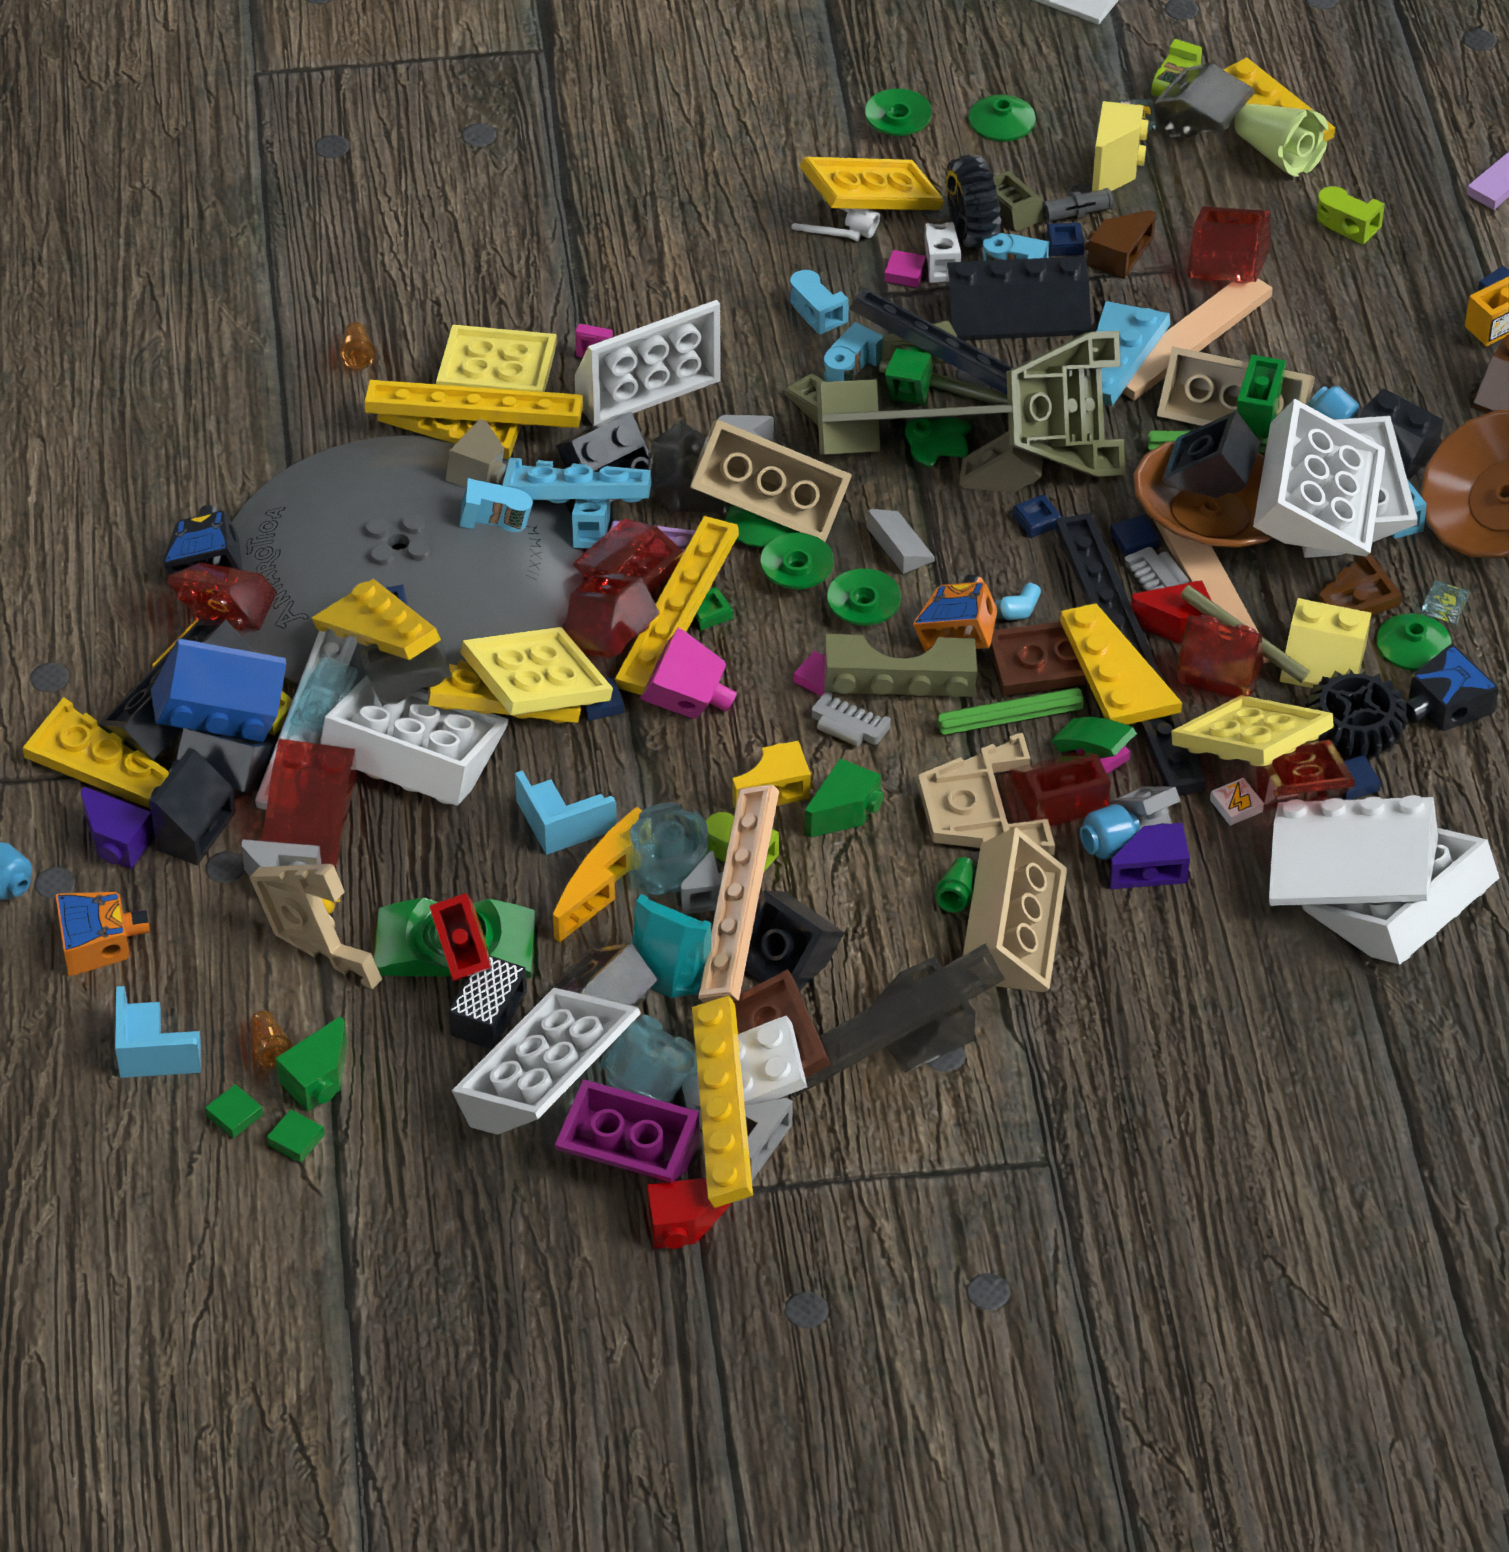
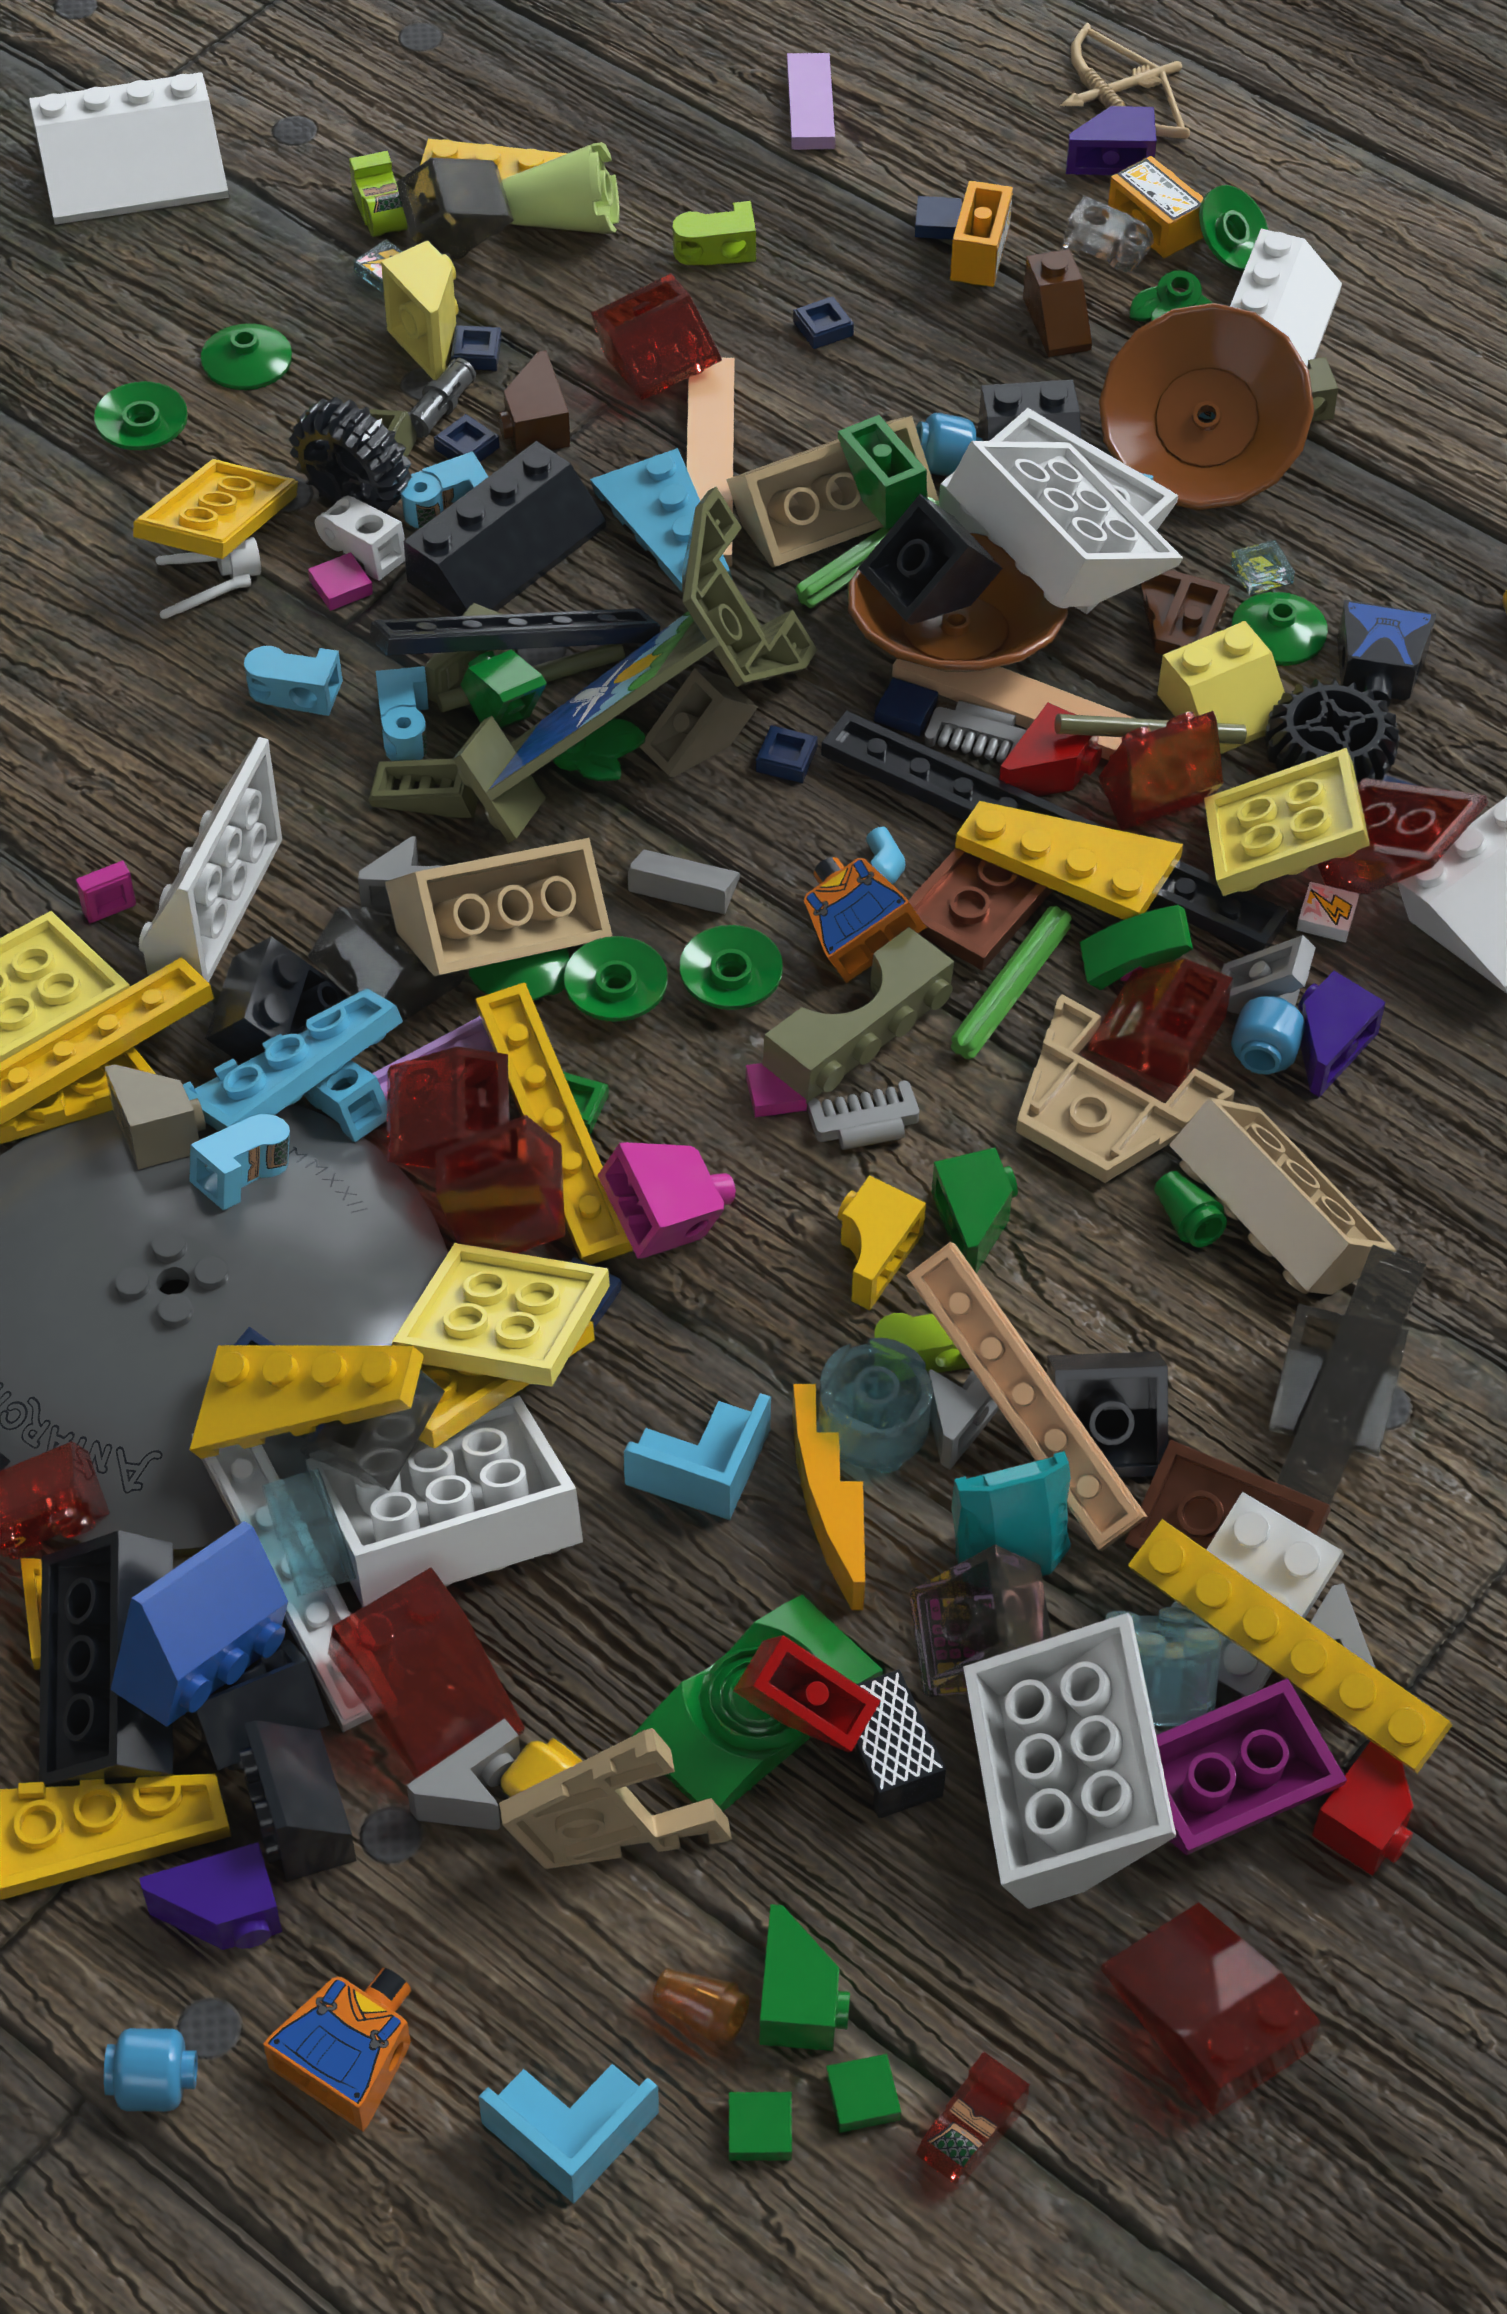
camera: 45 degrees left, 5 degrees up
(325, 1185) = (974, 2120): none -> clear red leg
(495, 1234) = (1213, 2006): none -> clear red slope
(1134, 191) = (477, 346): none -> dark blue tile
(1355, 302) = (823, 322): none -> dark blue tile

